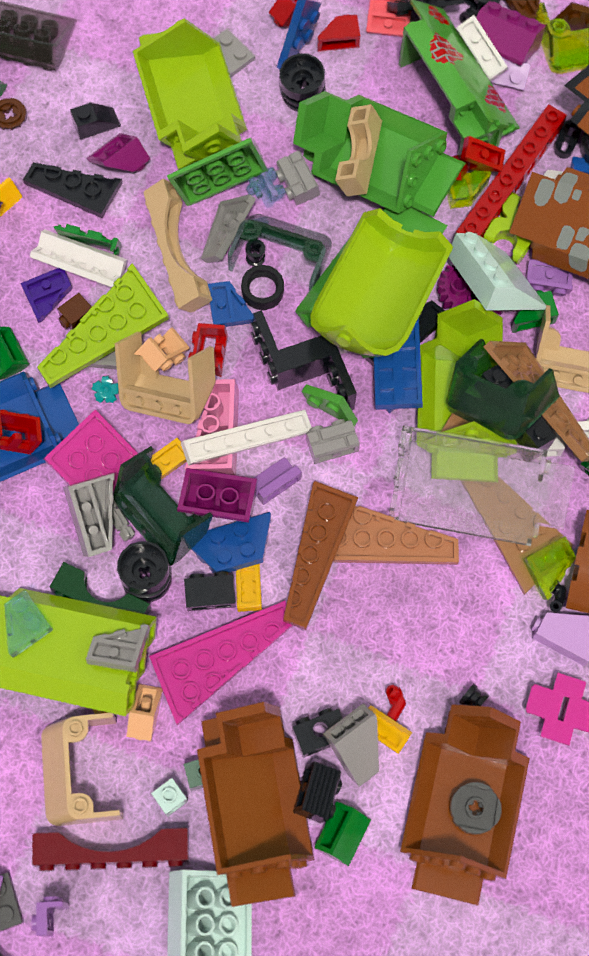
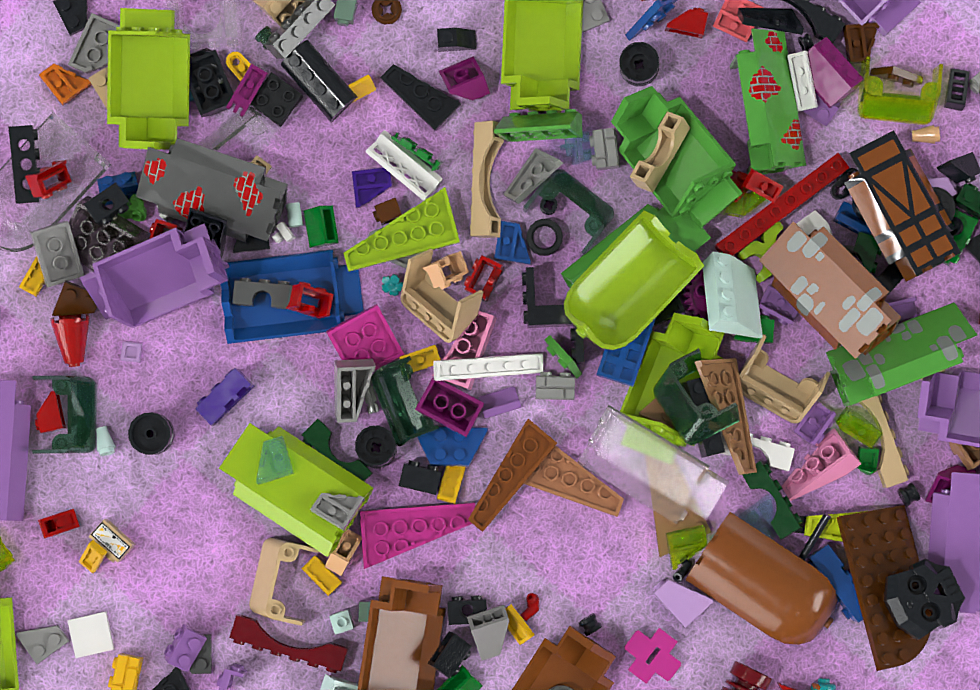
camera: 20 degrees right, 15 degrees up
(126, 750) = (321, 575): none -> yellow plate

